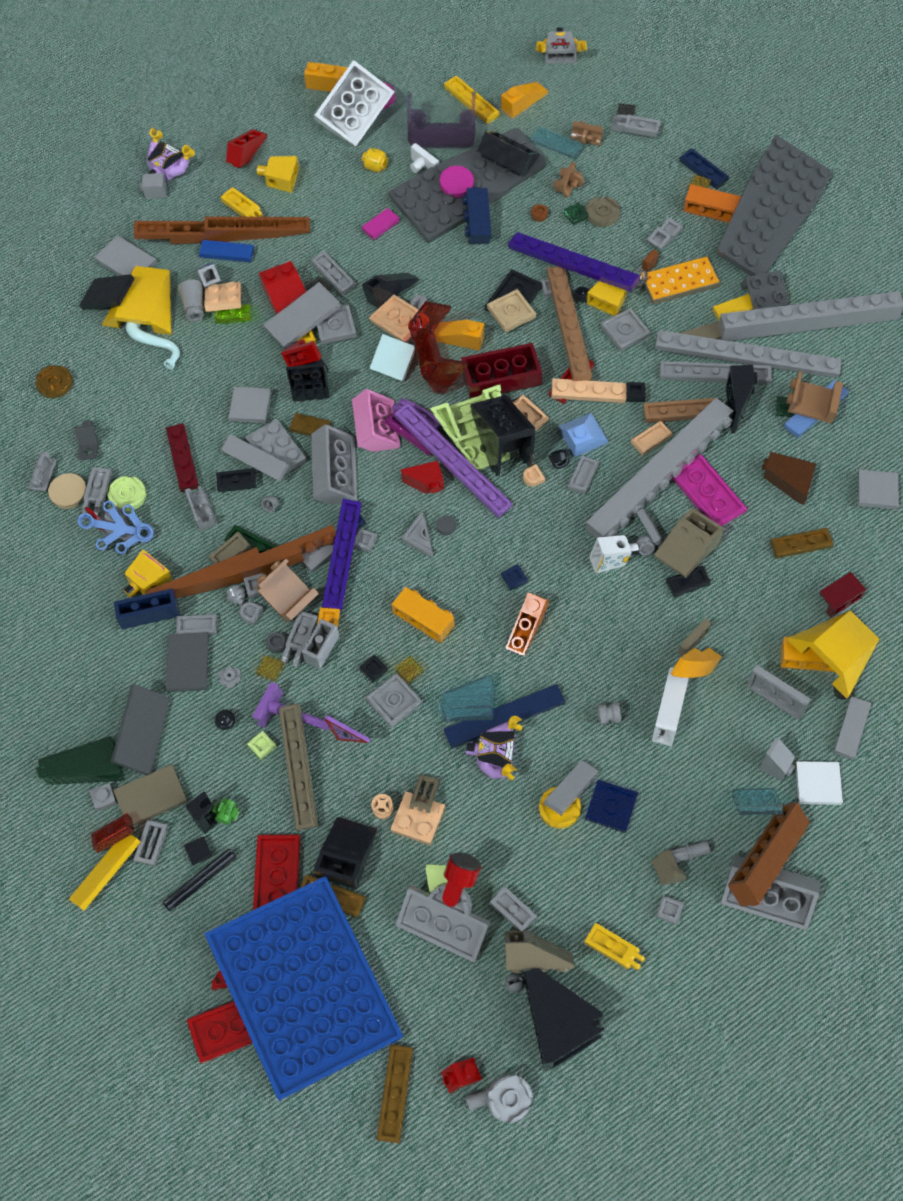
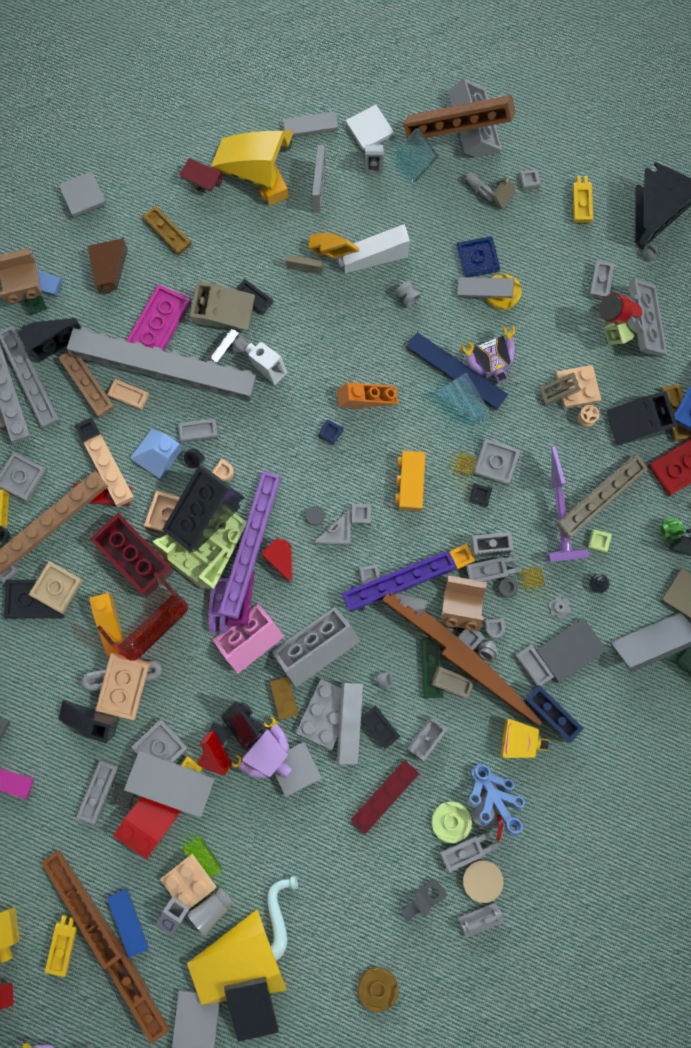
camera: 125 degrees left, 15 degrees up
(274, 387) = (267, 754): none -> lavender torso
(393, 357) = (170, 664): light aqua tile -> none
(421, 559) = (361, 513): none -> light grey plate
(531, 952) = (627, 241): dark tan slope -> none

